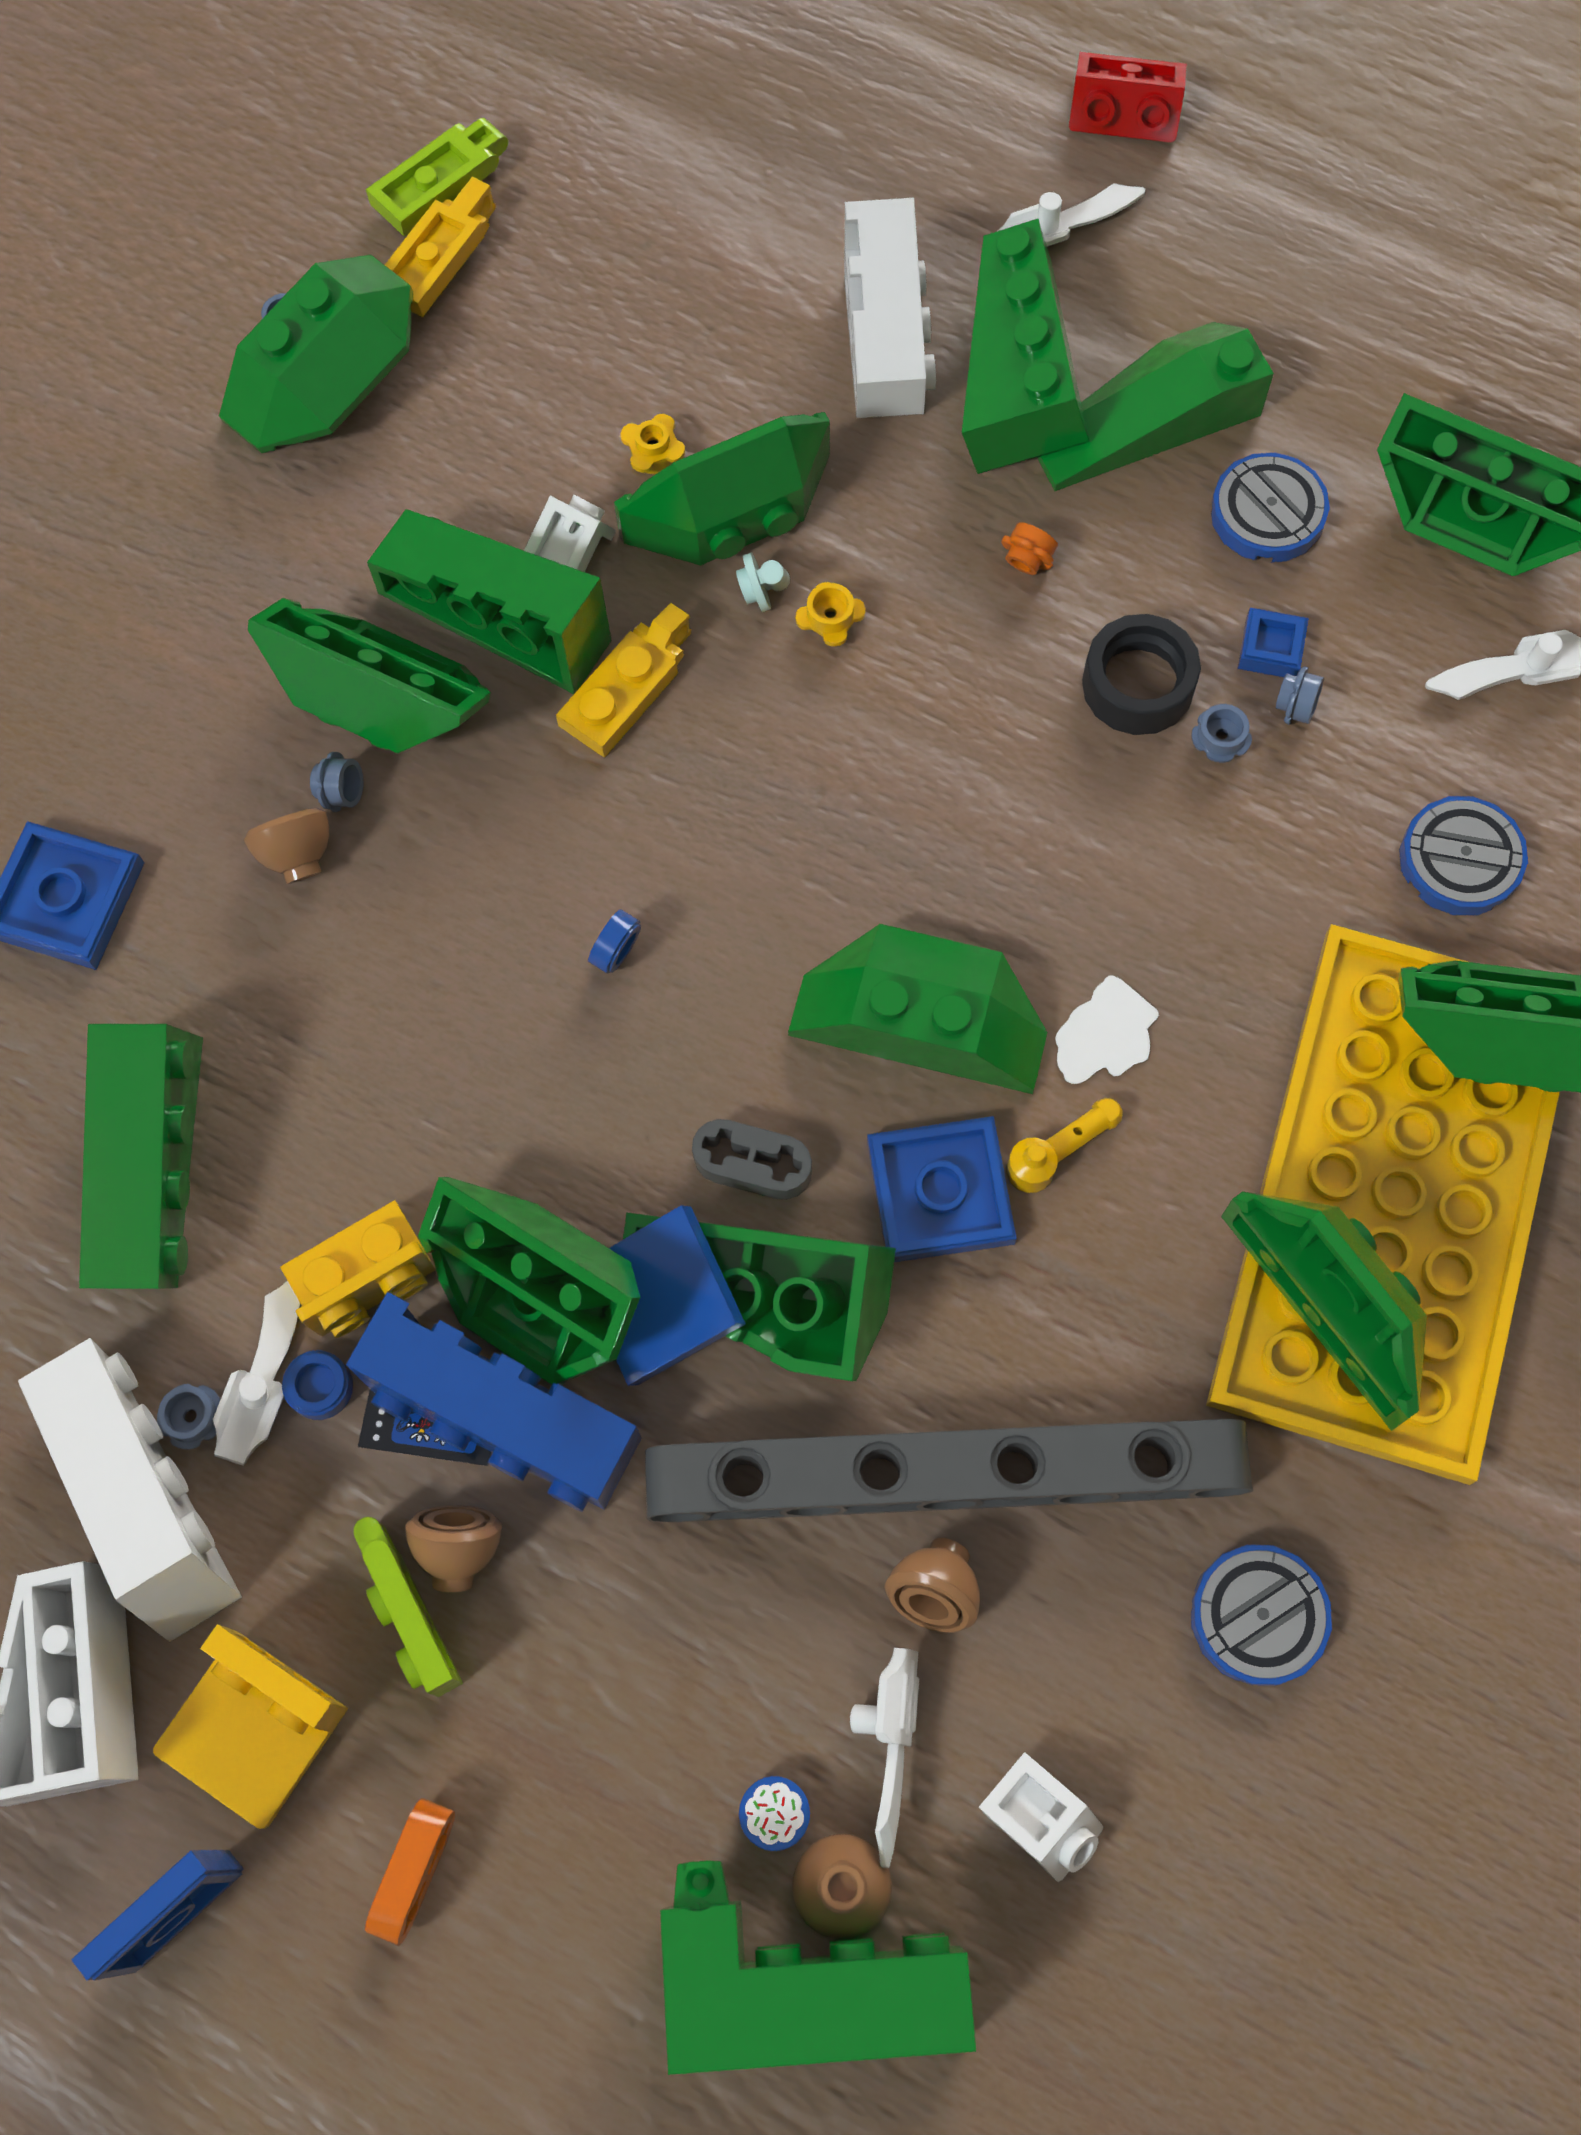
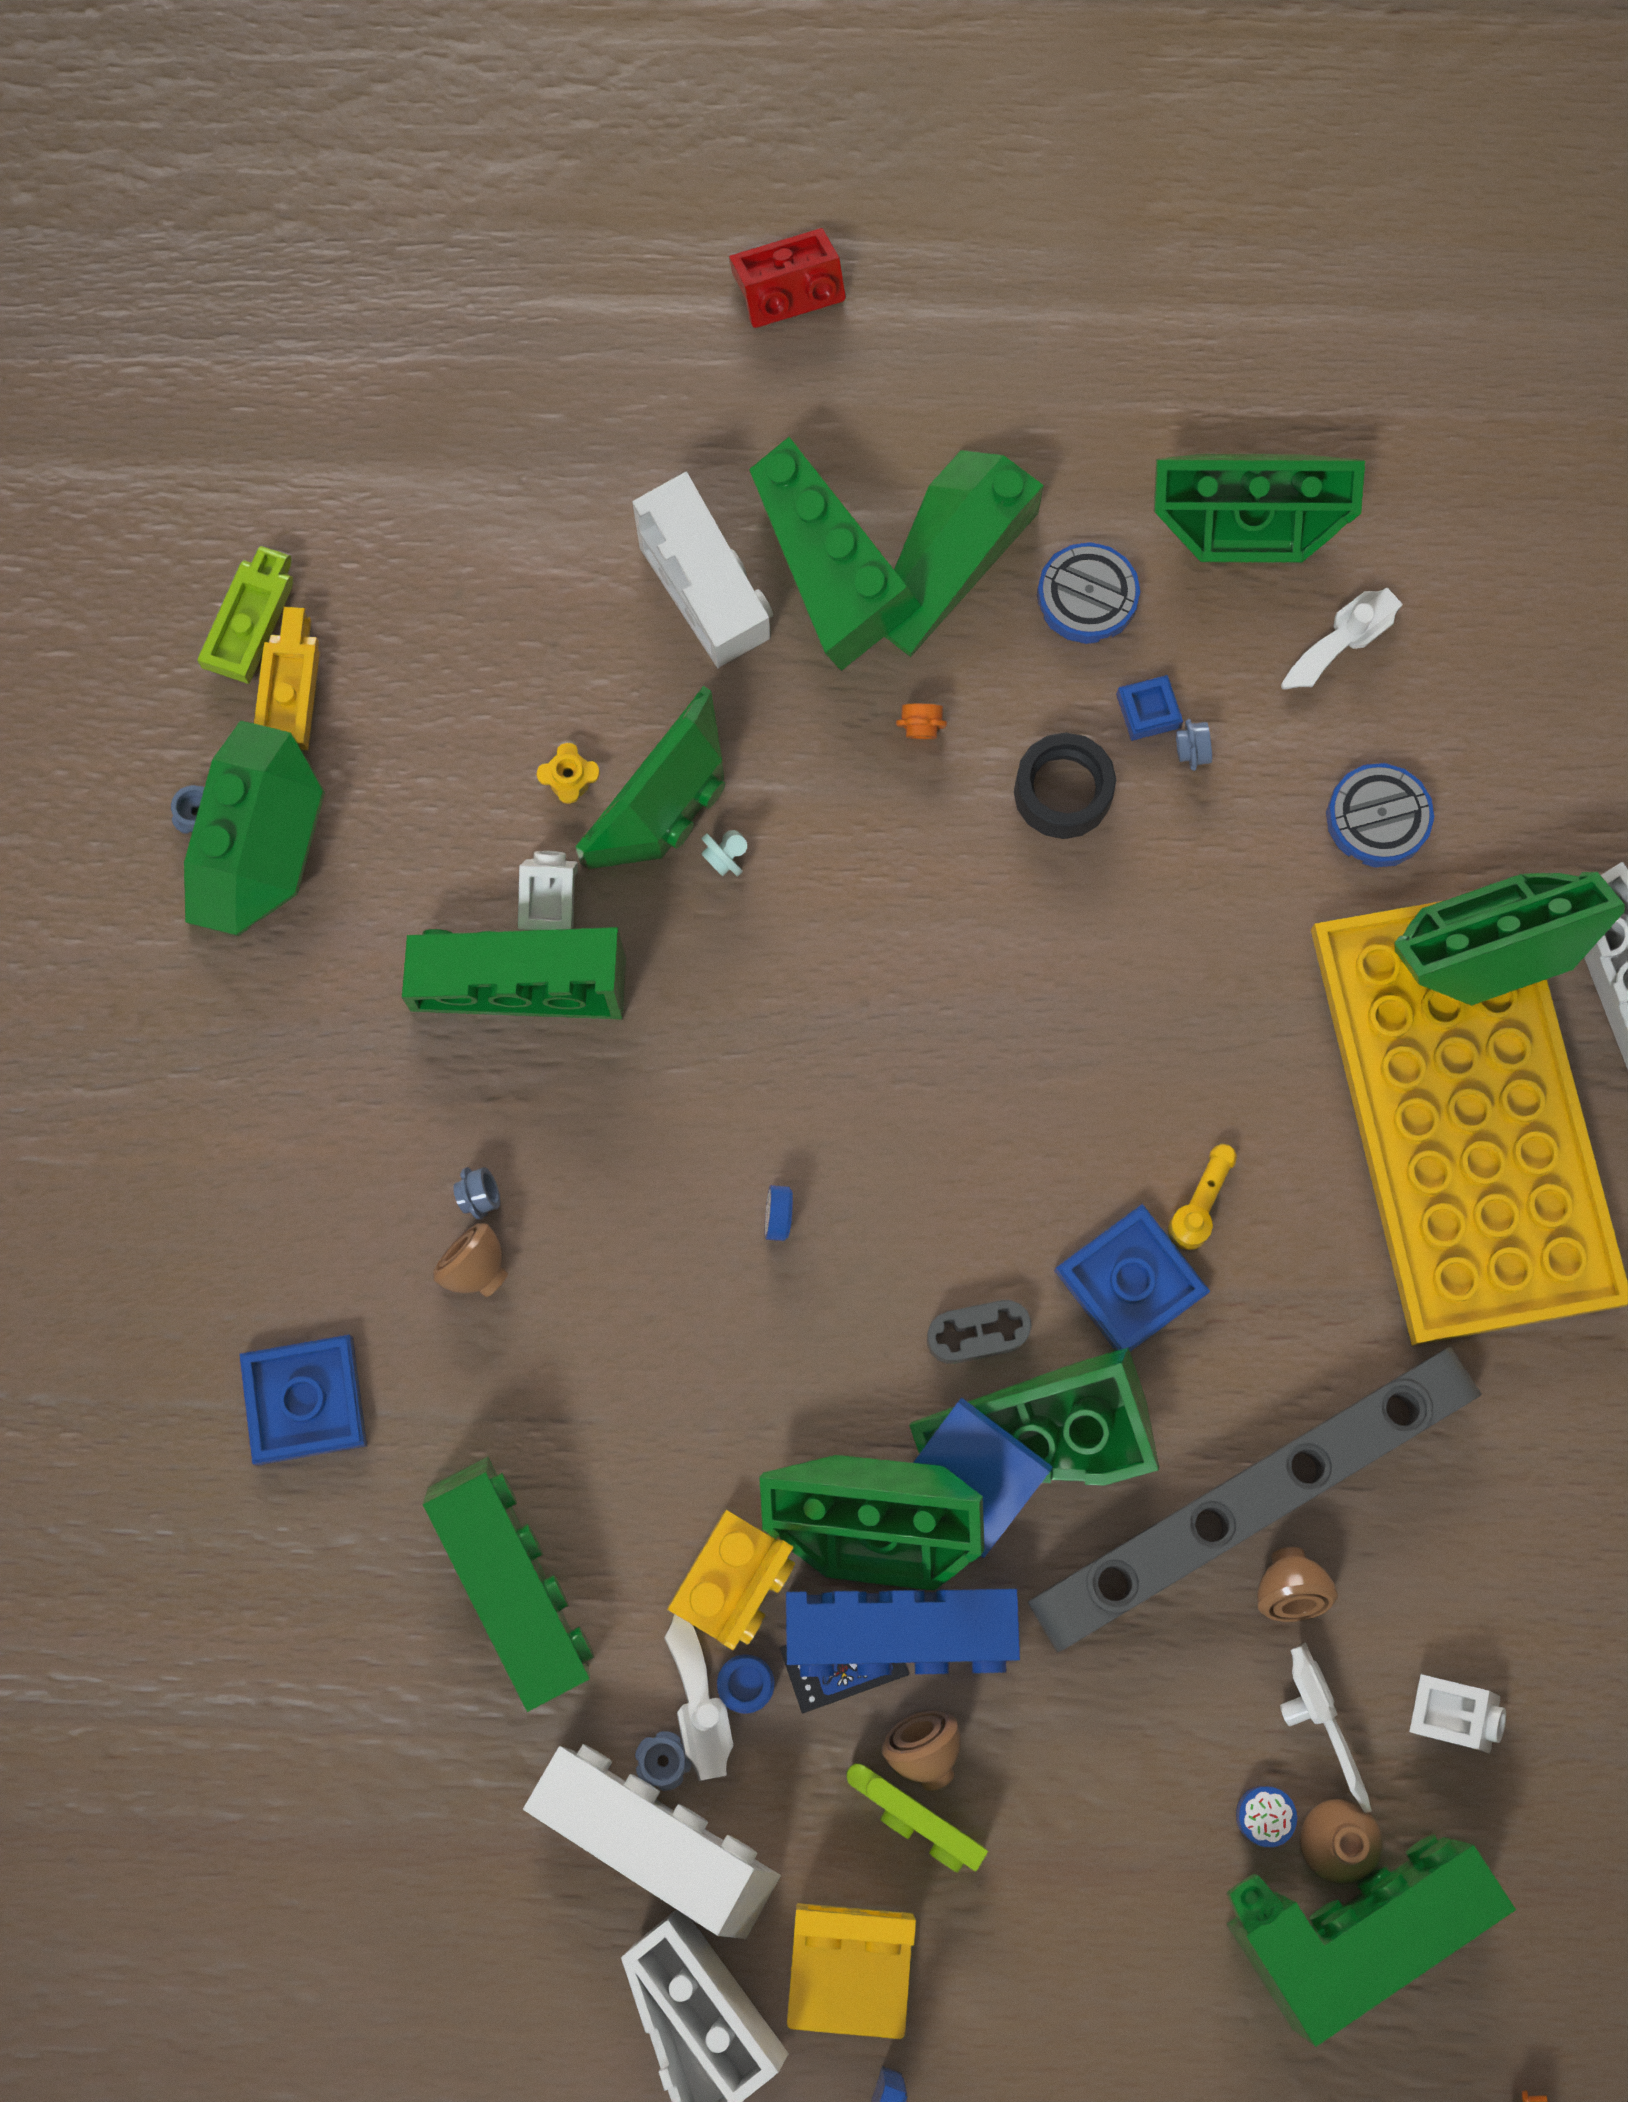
camera: 30 degrees left, 5 degrees up
(364, 676) = (458, 1092): green wedge -> none
(410, 1872) = (1031, 2006): orange beam -> none
(626, 682) = (661, 990): yellow hinge -> none
(830, 598) = (793, 837): yellow plate -> none
(924, 1007) = (1041, 1143): green wedge -> none
(1057, 224) = (785, 419): white piece -> none
(1105, 1032) = (1187, 1091): white sticker -> none
(1223, 719) = (1155, 792): sand blue plate -> none
(1261, 1615) = (1530, 1482): tile -> none
(1342, 1294) = (1477, 1216): green wedge -> none

